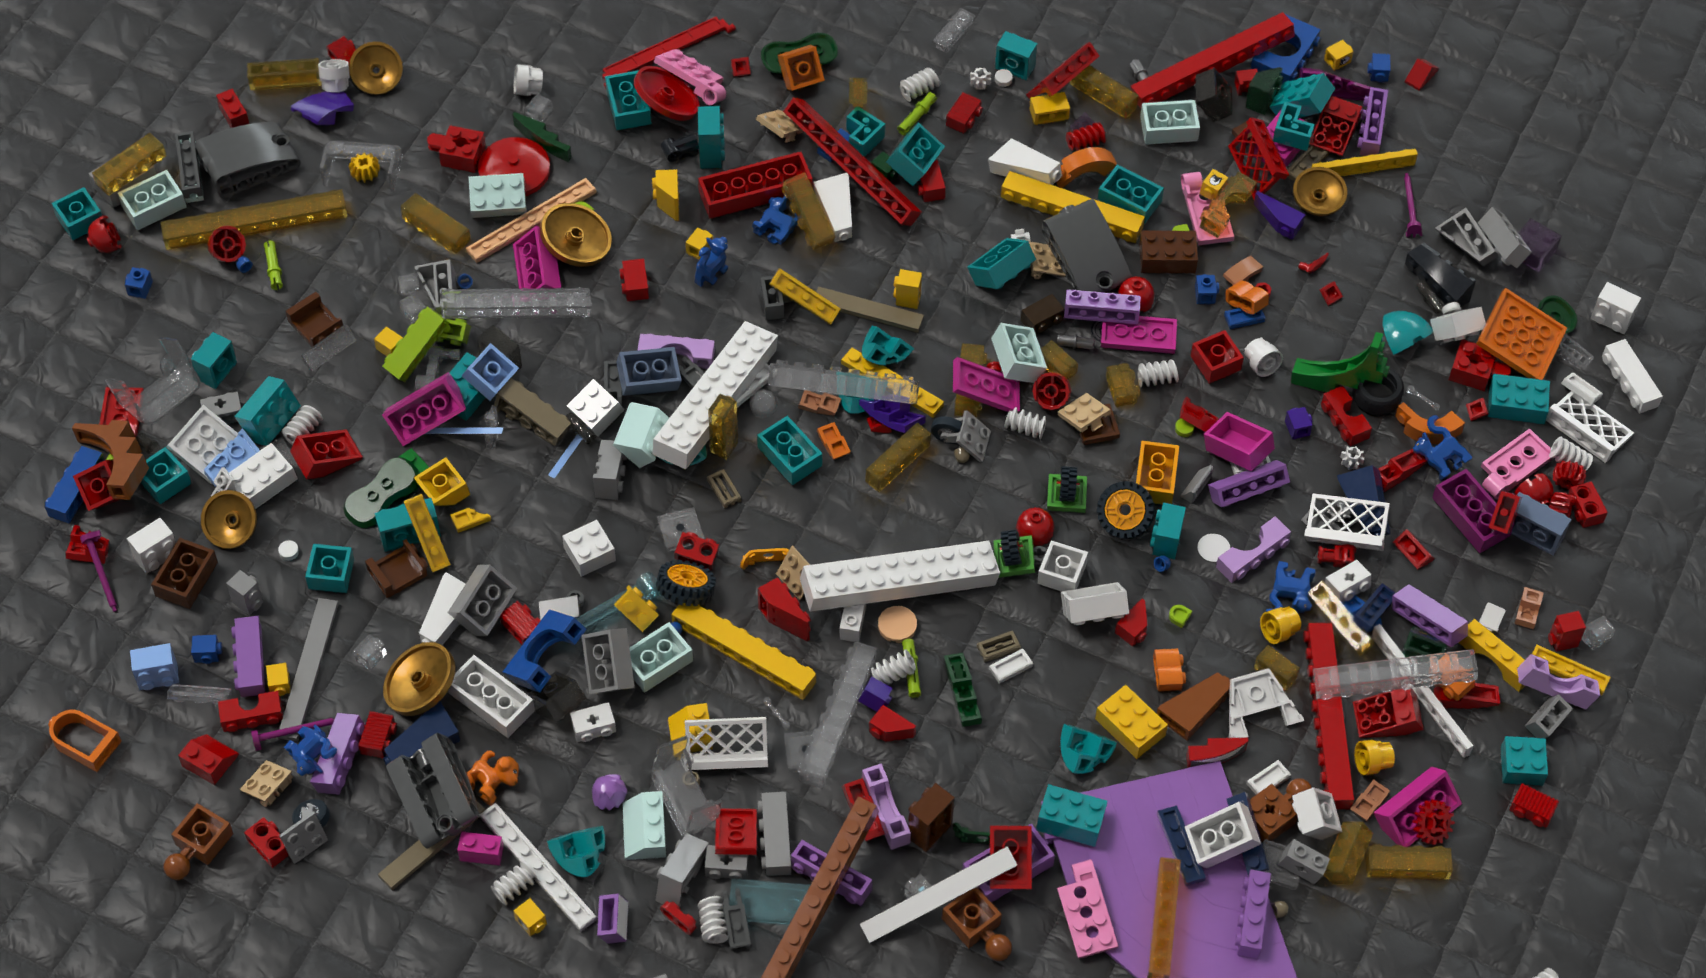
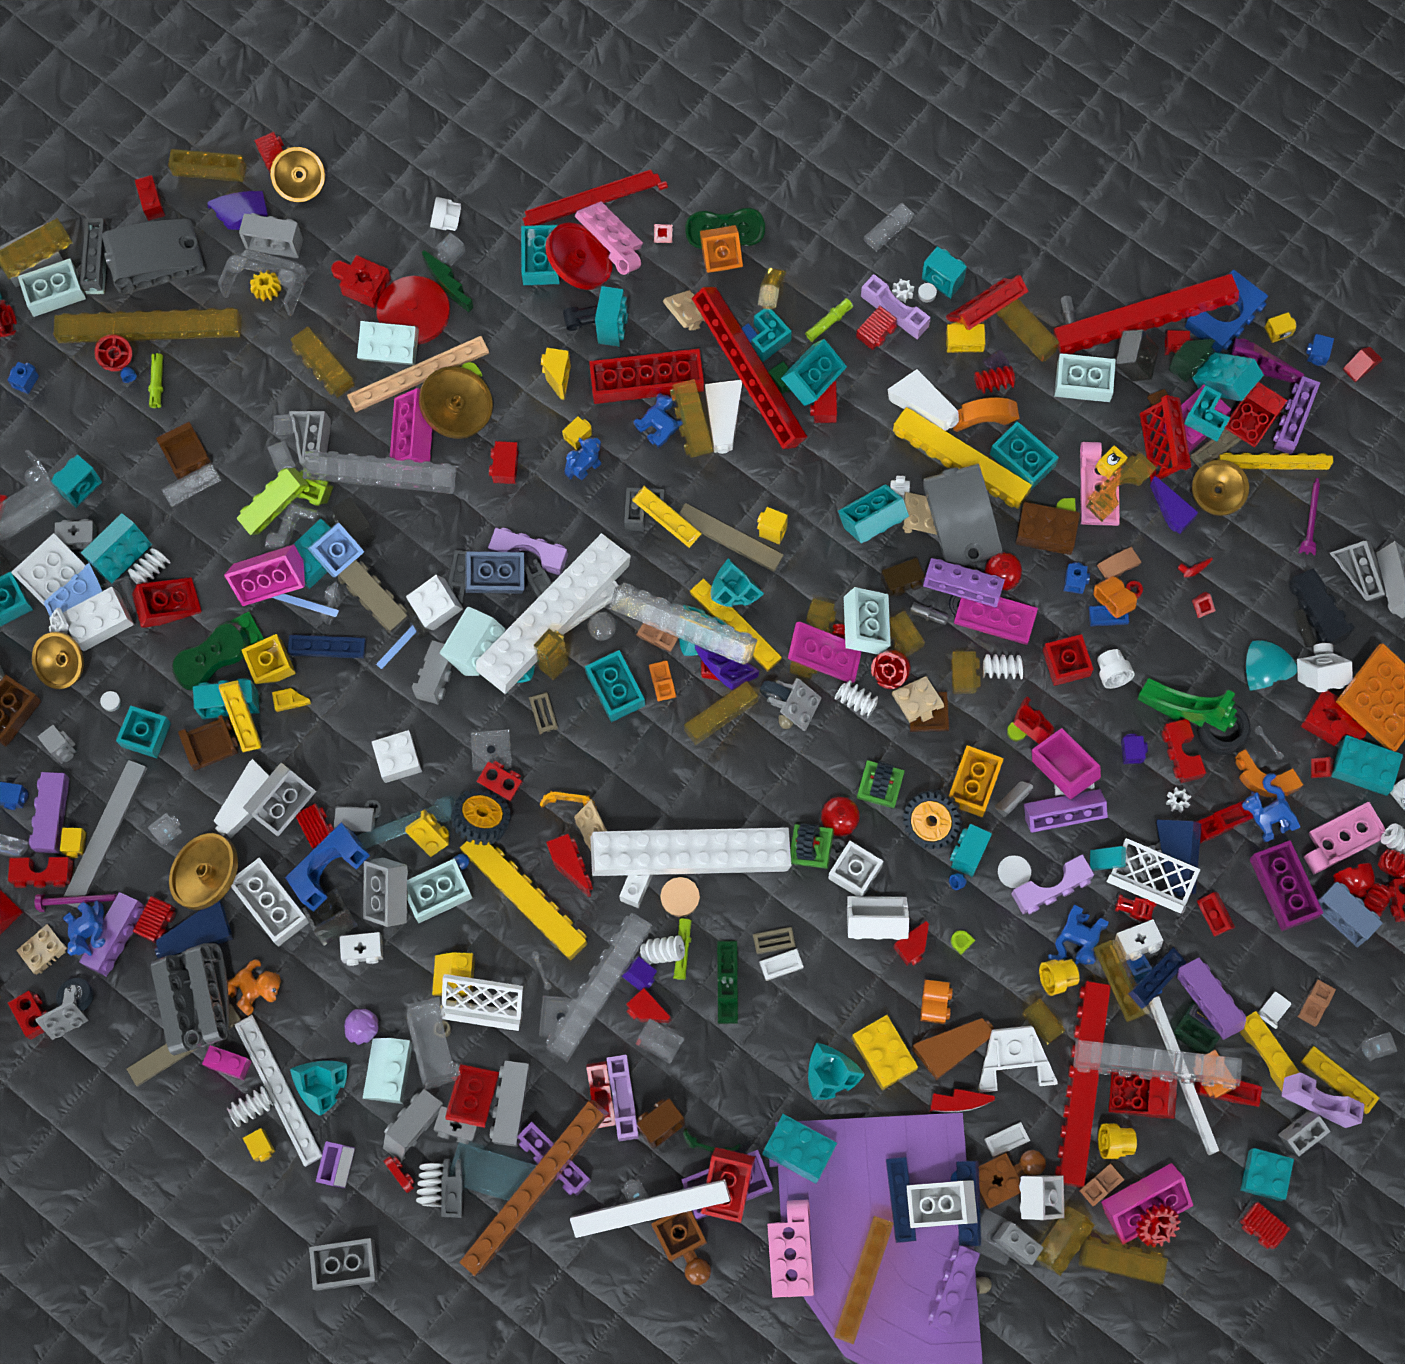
camera: 15 degrees right, 15 degrees up
(334, 75) = (254, 175): white piece -> none
(362, 122) = (271, 235): none -> light grey brick
(386, 341) = (248, 488): yellow brick -> none
(467, 284) = (338, 436): blue hinge -> none
(496, 465) = (326, 646): none -> dark blue plate
(910, 749) = (659, 1041): none -> clear brick
(919, 82) = (838, 286): white piece -> none
(996, 100) = (910, 319): none -> lavender arch
(1300, 515) = (1108, 858): none -> teal tile
(1505, 512) = (1315, 905): red brick -> none
(1567, 631) = (1347, 1042): red brick -> none

